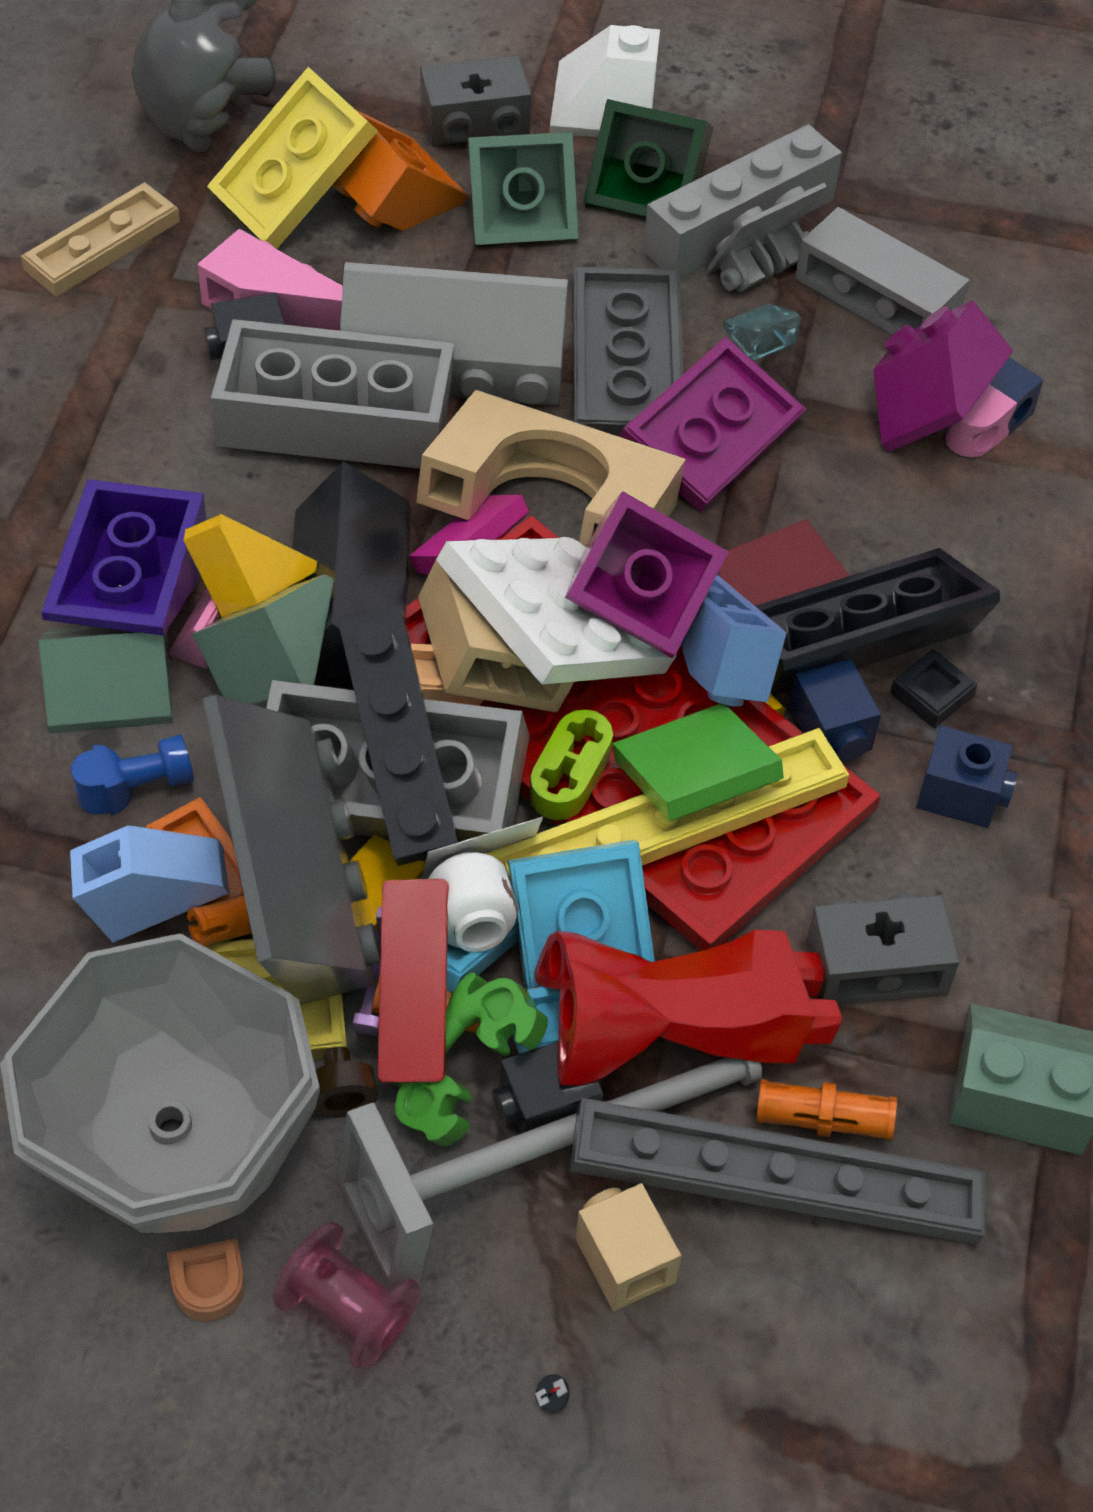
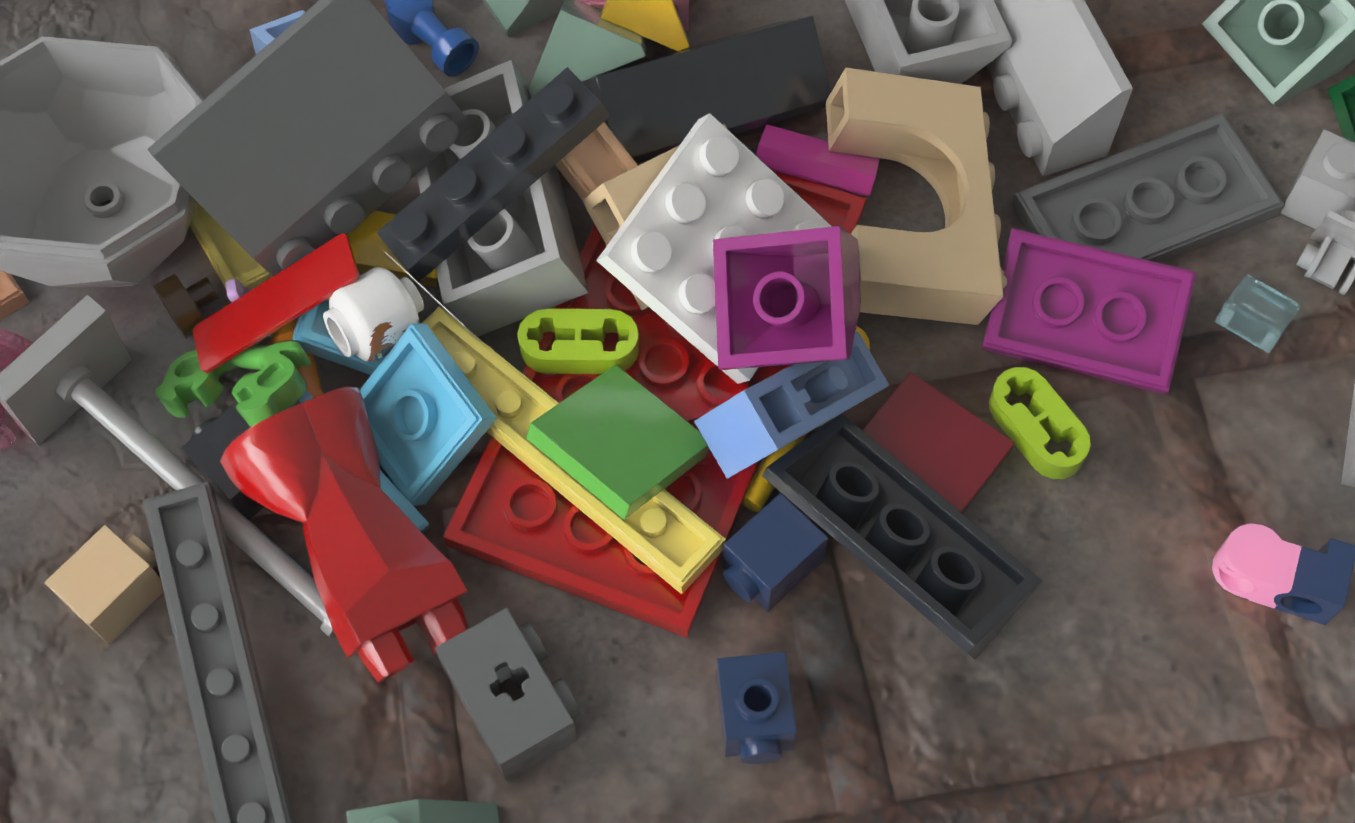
camera: 70 degrees right, 10 degrees up
(792, 499) = (1046, 418): none -> lime beam
(827, 1110) = (314, 707): orange pin -> none
(933, 688) = (869, 643): black tile -> none
(936, 373) = (1269, 489): magenta slope -> none

